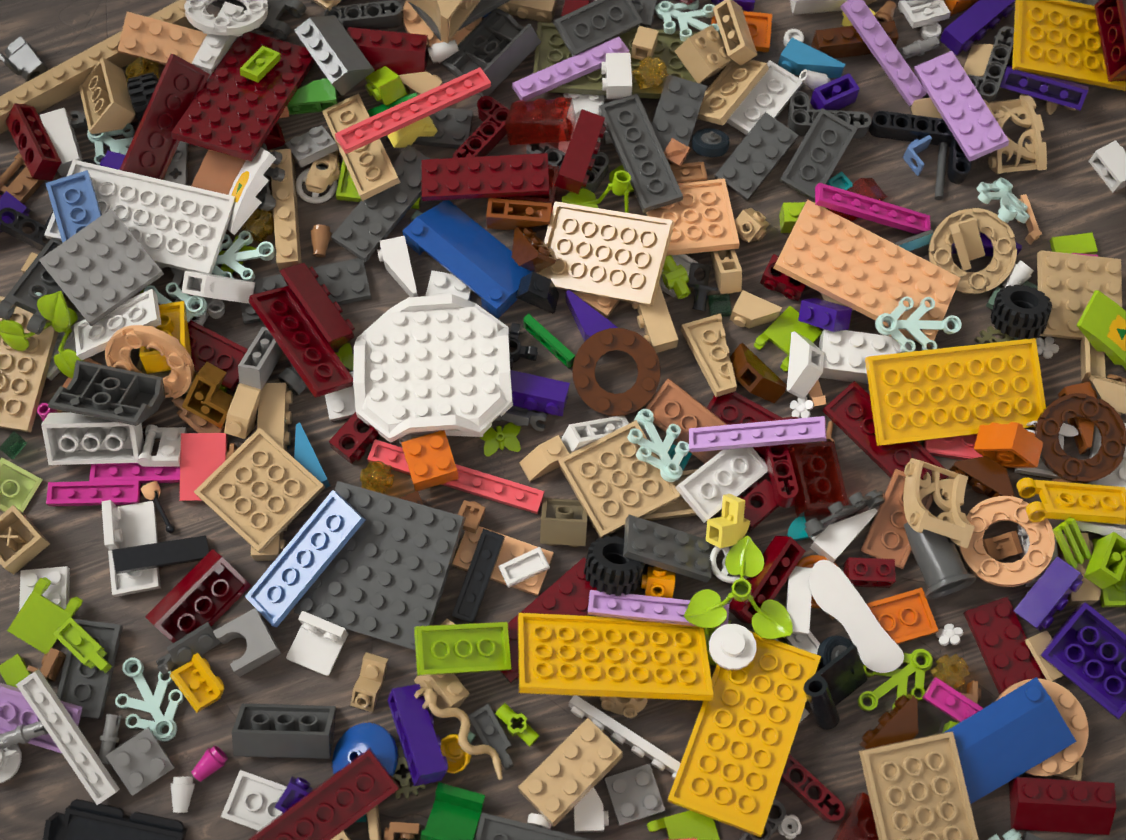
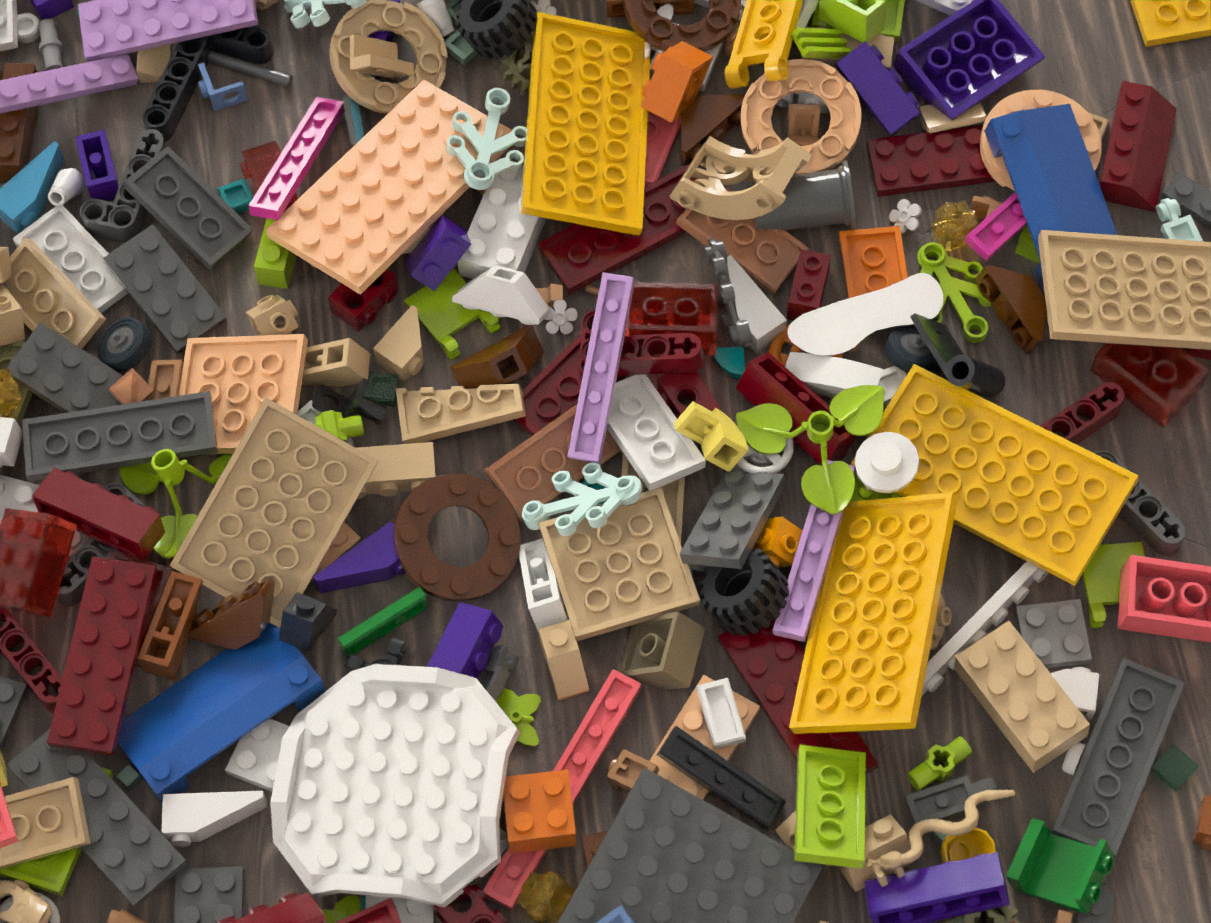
camera: 75 degrees left, 5 degrees down
(796, 827) = (1125, 449): white plate -> none

